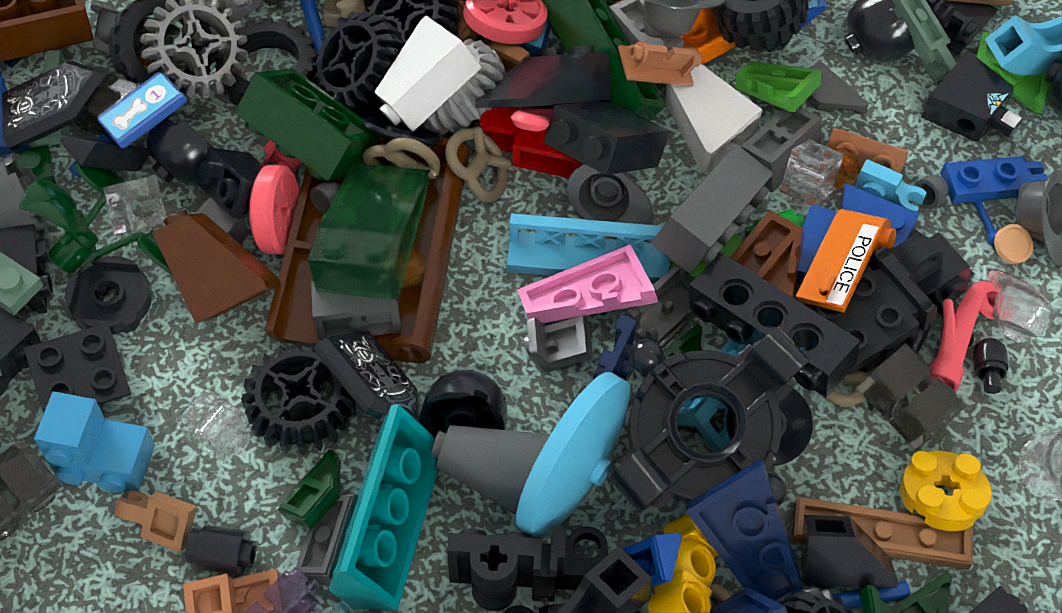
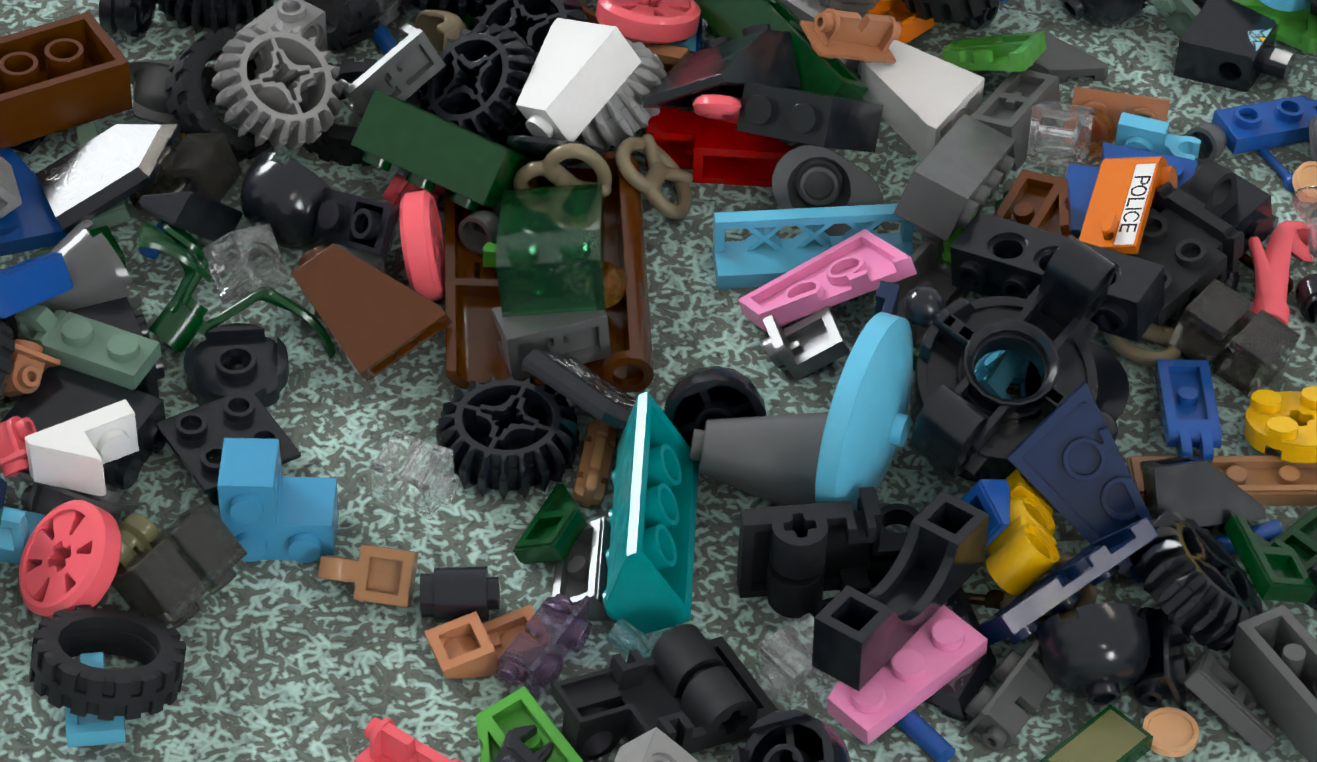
camera: 10 degrees left, 15 degrees down
(141, 110) = (234, 155): slope -> none
(292, 45) = (397, 72): none -> dark grey hinge
(360, 441) = (594, 464): none -> medium nougat axle
(857, 458) = (1188, 406): none -> blue hinge

